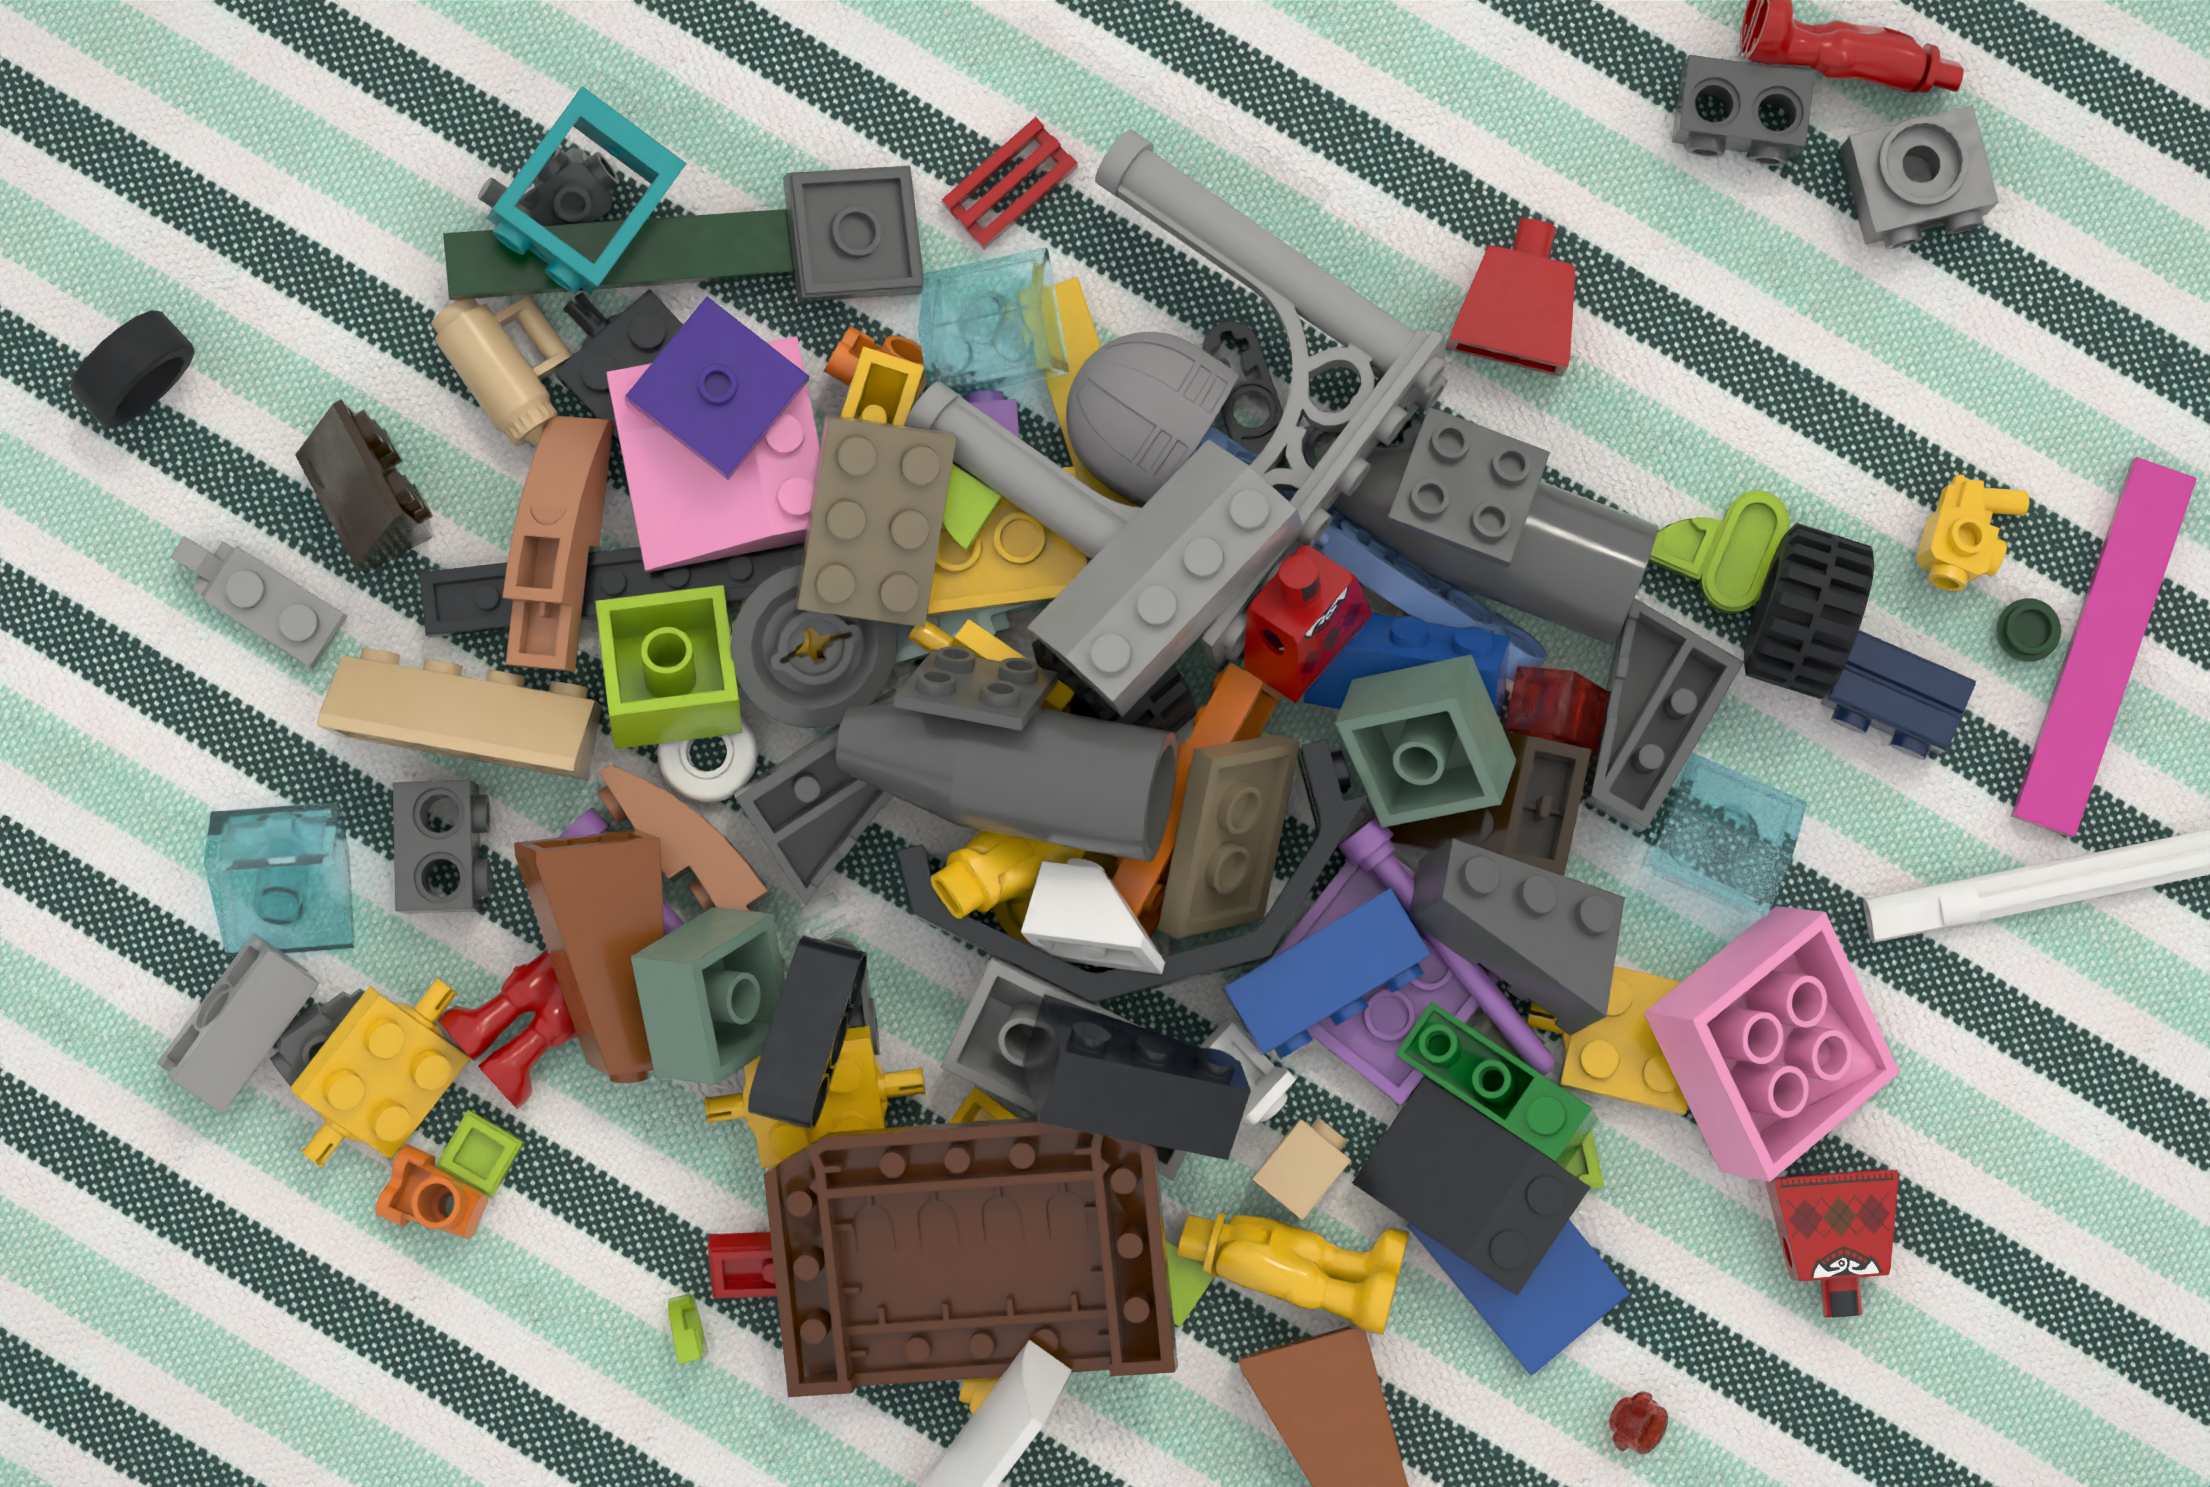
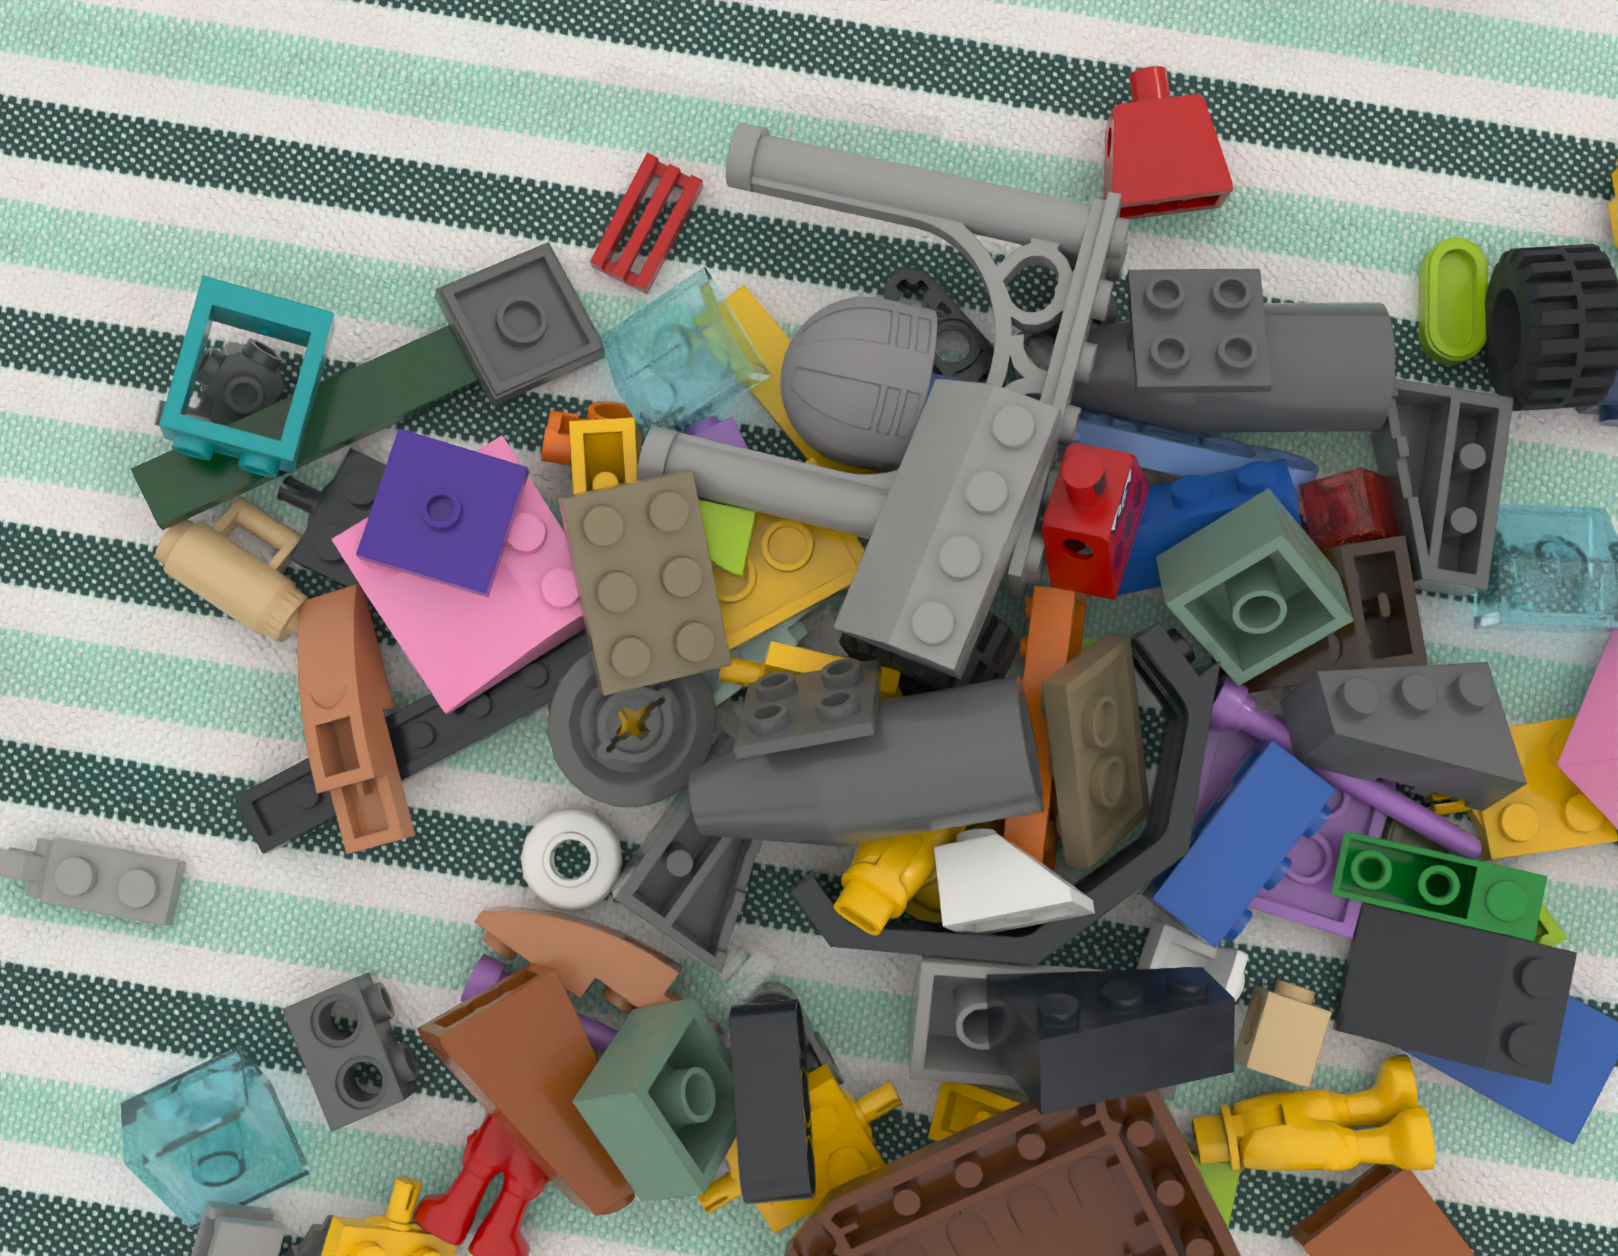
camera: 20 degrees left, 0 degrees up
(361, 489) = (146, 736): dark brown slope -> none
(462, 715) = (322, 919): tan slope -> none
(668, 667) = (501, 796): lime brick -> none
(1685, 546) = (1407, 313): lime tile -> none

